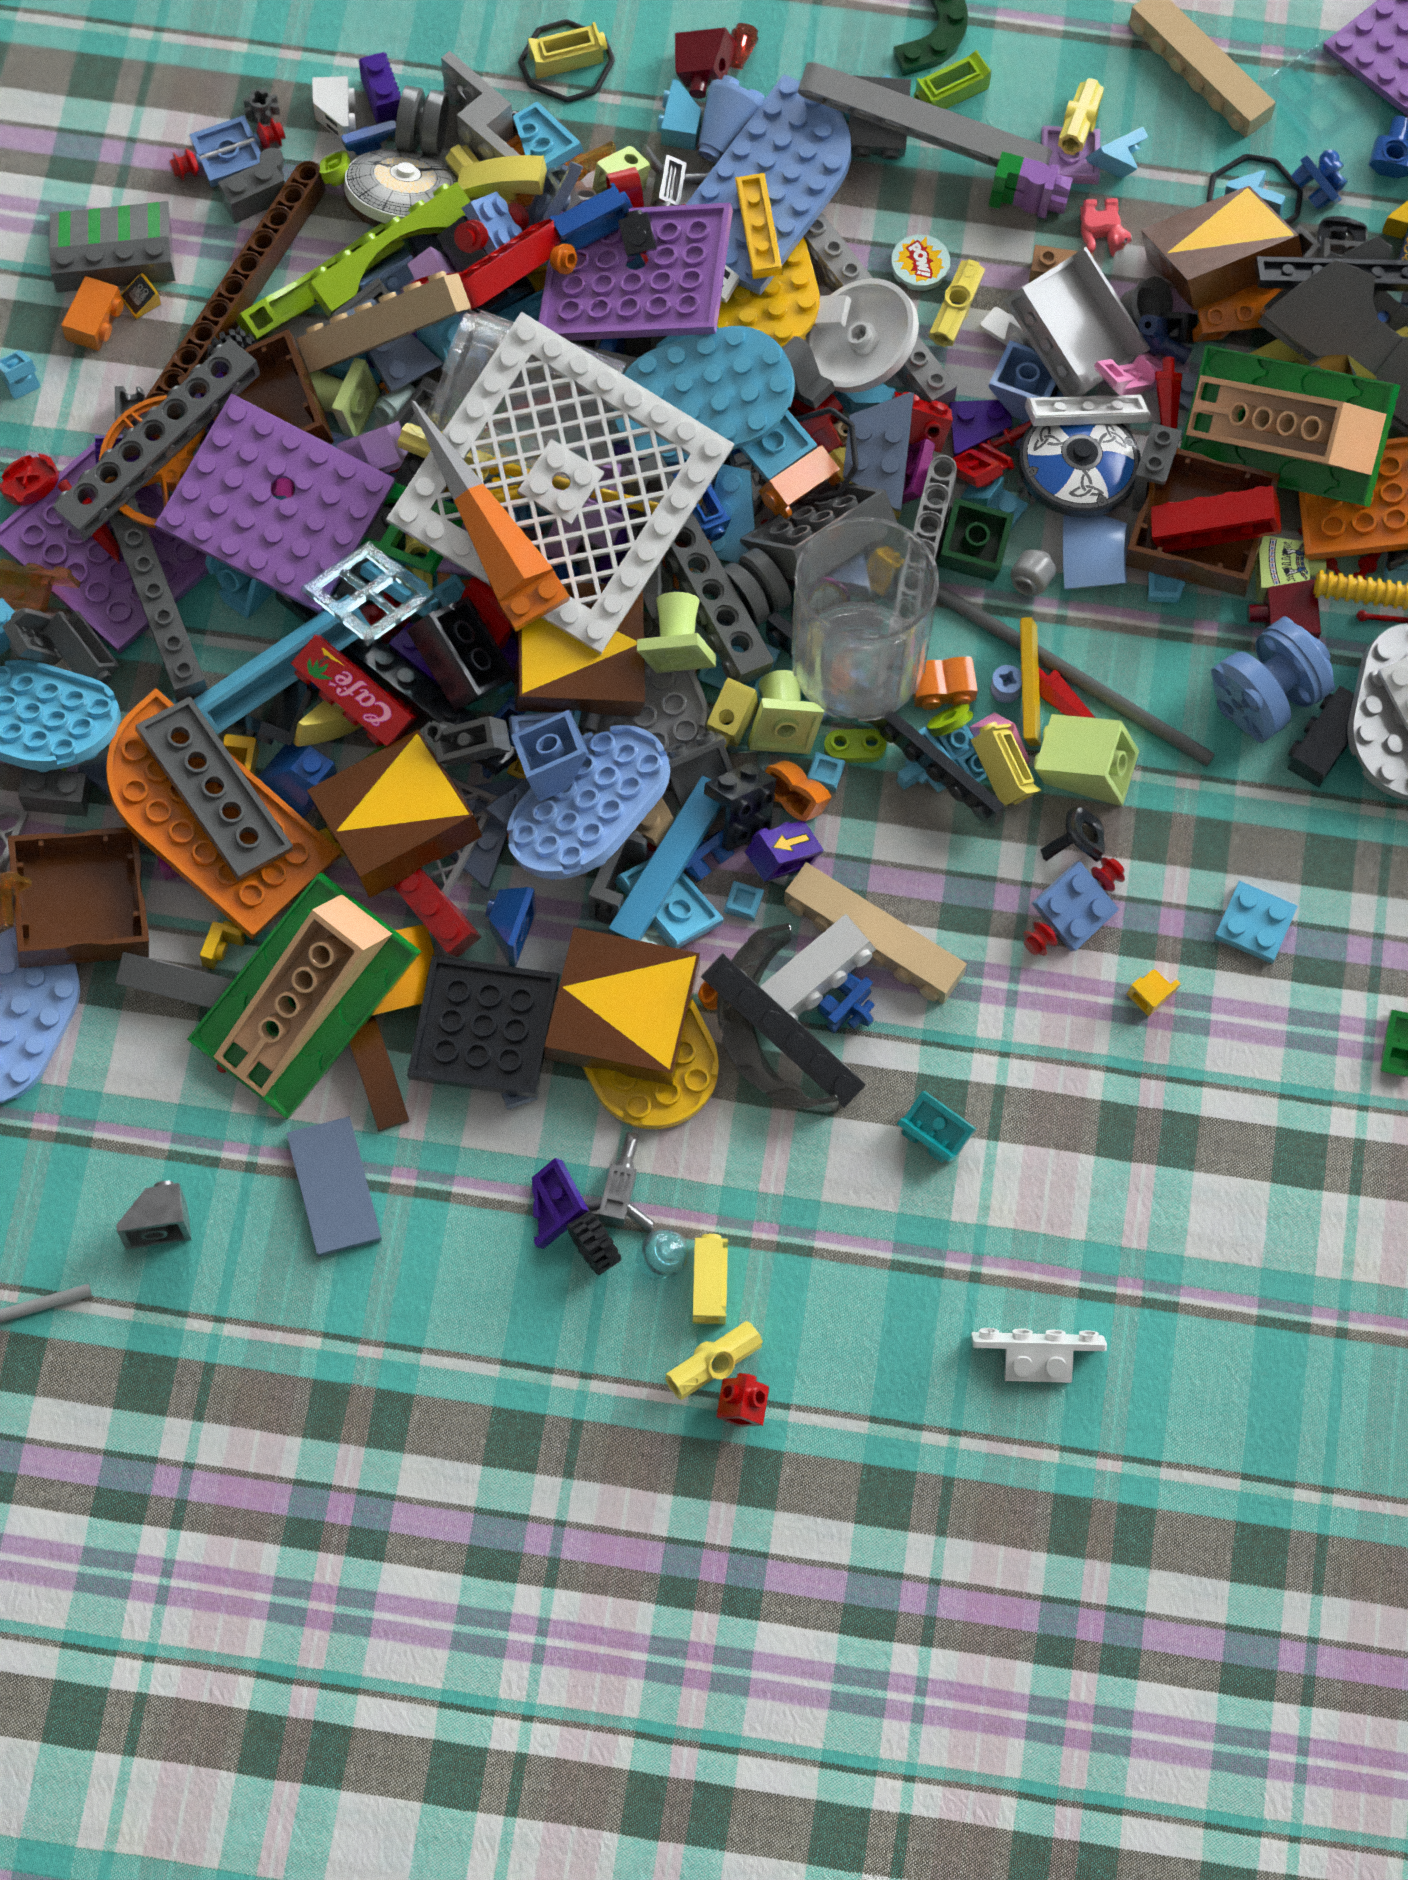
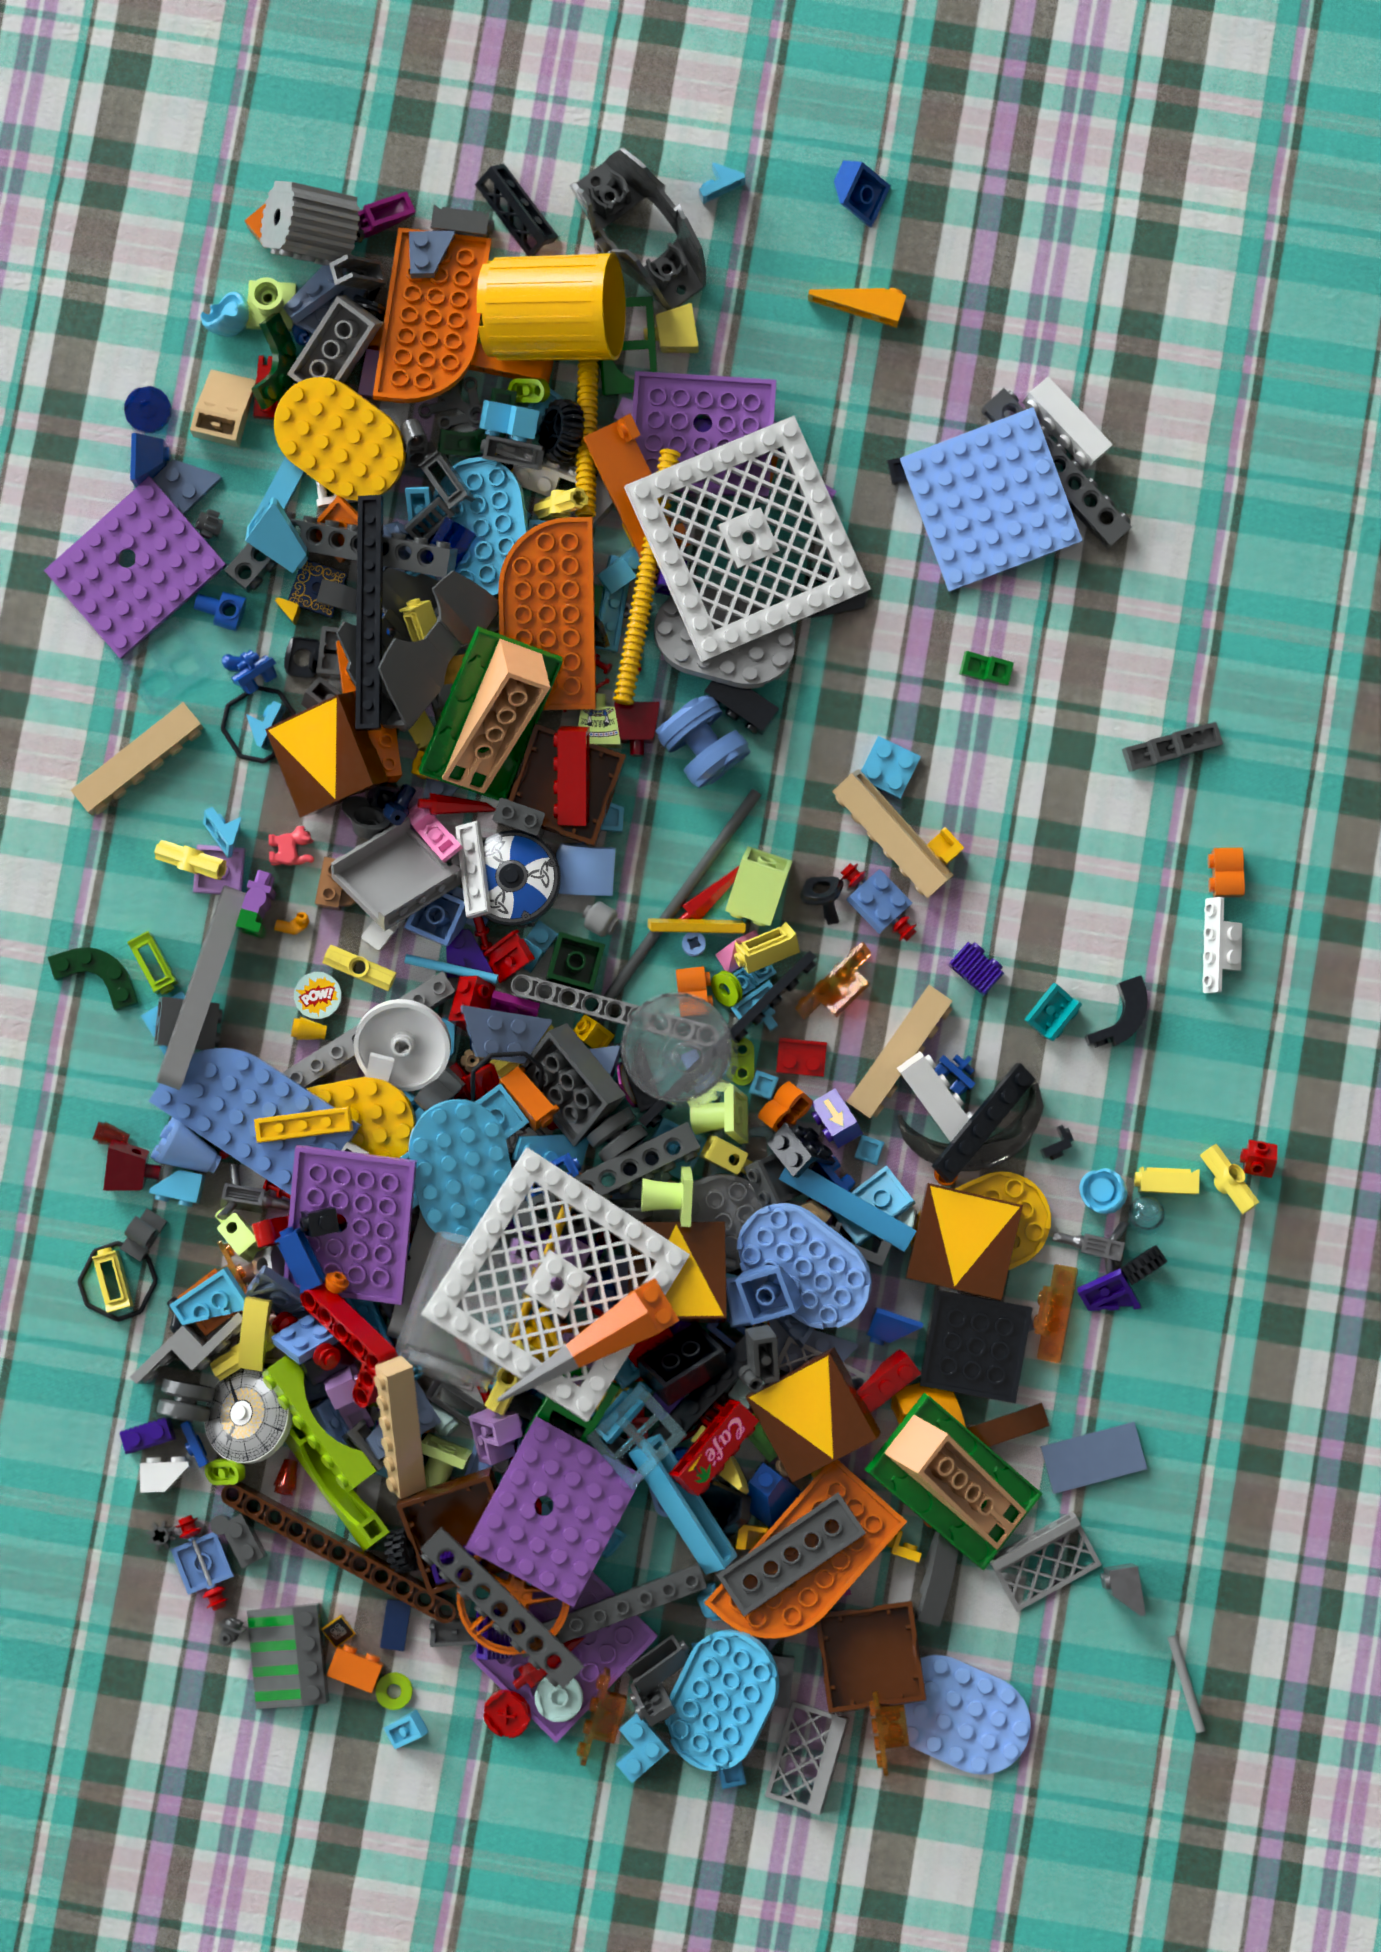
camera: 85 degrees left, 15 degrees up
(43, 536) = (558, 1703): none -> light aqua tile
(64, 347) = (405, 1686): none -> lime piece
(141, 358) = (395, 1625): none -> dark blue tile
(143, 173) = (231, 1630): none -> dark grey hinge
(222, 1110) = (1033, 1543): none -> light grey fence
(326, 237) = (287, 1478): none -> clear red cone
(529, 1129) = (1055, 1312): none -> clear orange bracket
(623, 78) = (142, 1234): none -> dark grey tile
(693, 1191) = (1103, 1191): none -> medium azure piece
(749, 1133) = (1056, 1150): none -> black bracket
(863, 817) = (801, 1057): none -> red plate
(877, 248) = (307, 1029): none -> yellow cone
(933, 1231) = (1134, 1008): none -> black arch
(960, 400) = (450, 968): none -> medium azure bar
(960, 857) = (839, 986): none -> clear orange bracket
(991, 1029) = (976, 968): none -> dark purple brick
(1004, 234) = (294, 926): none -> light orange arm
(1141, 1360) = (1227, 872): none -> orange brick
(1167, 921) = (892, 833): none -> tan brick
(1313, 1288) = (1172, 746): none -> dark grey slope

